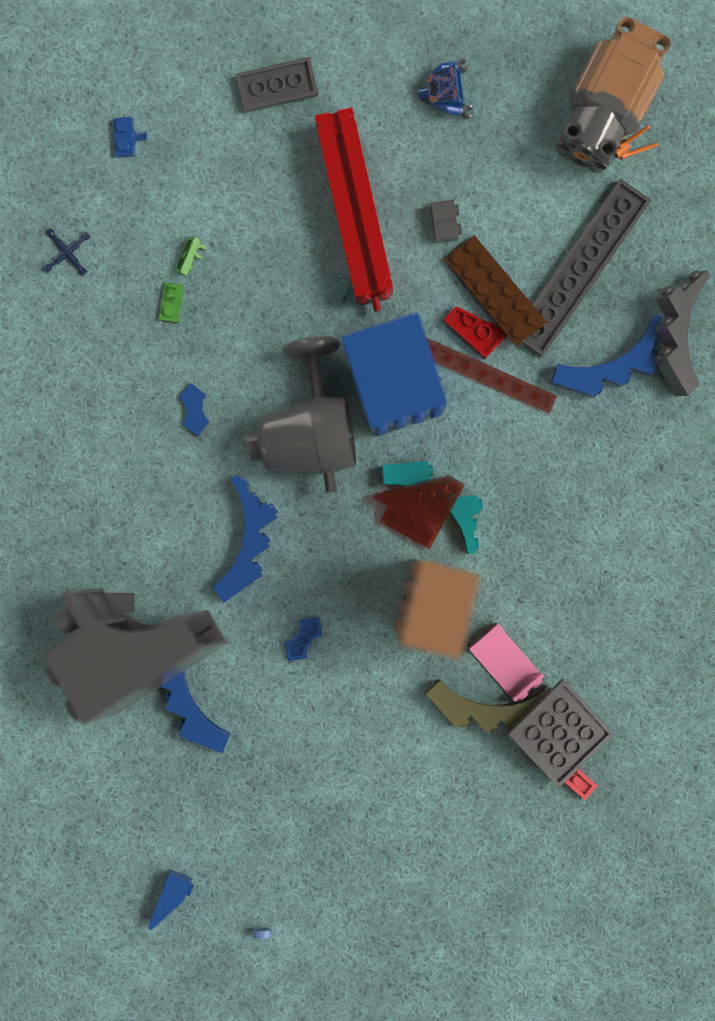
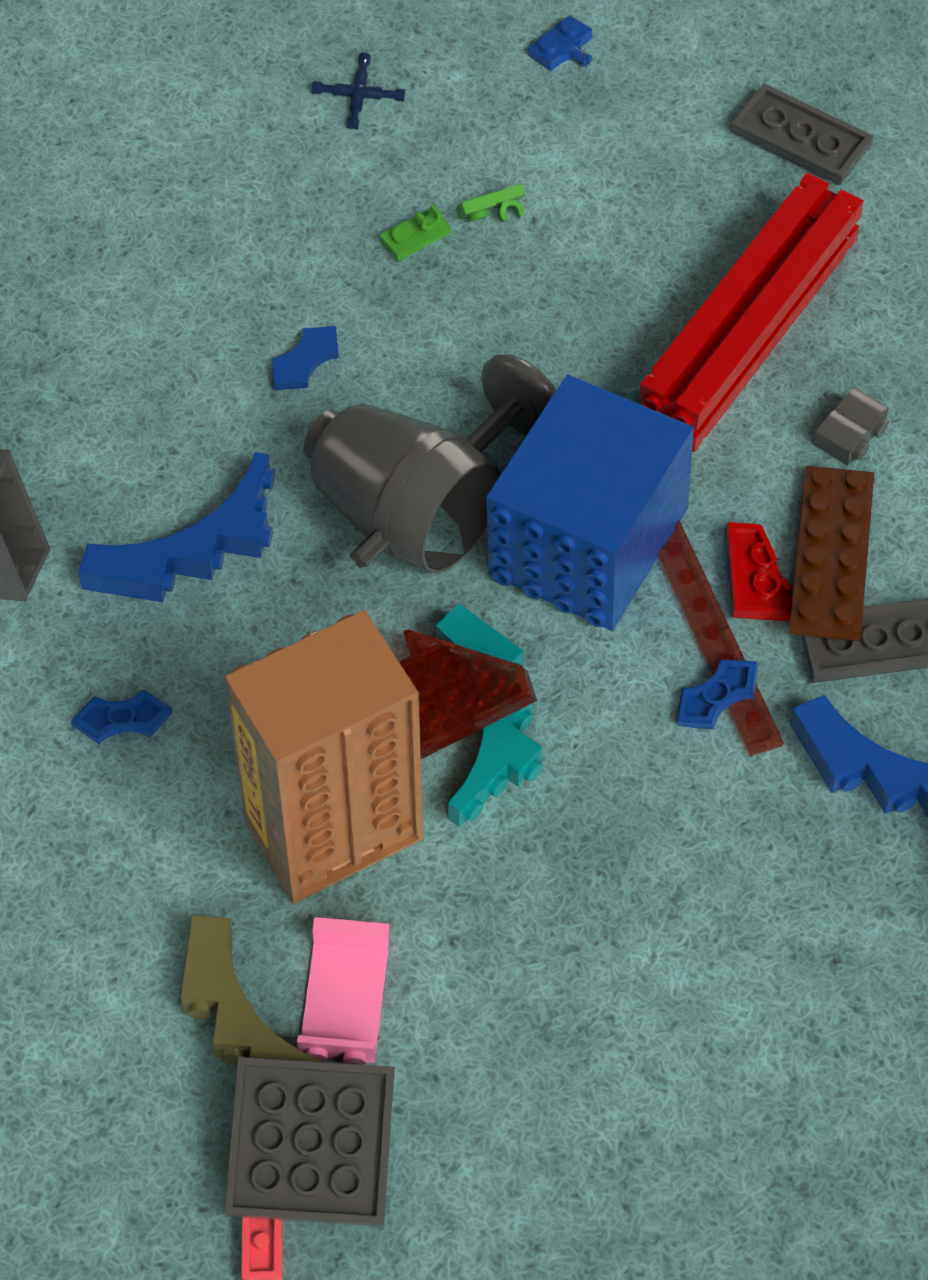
camera: 45 degrees right, 30 degrees down
(516, 391) = (731, 683): none -> blue tile

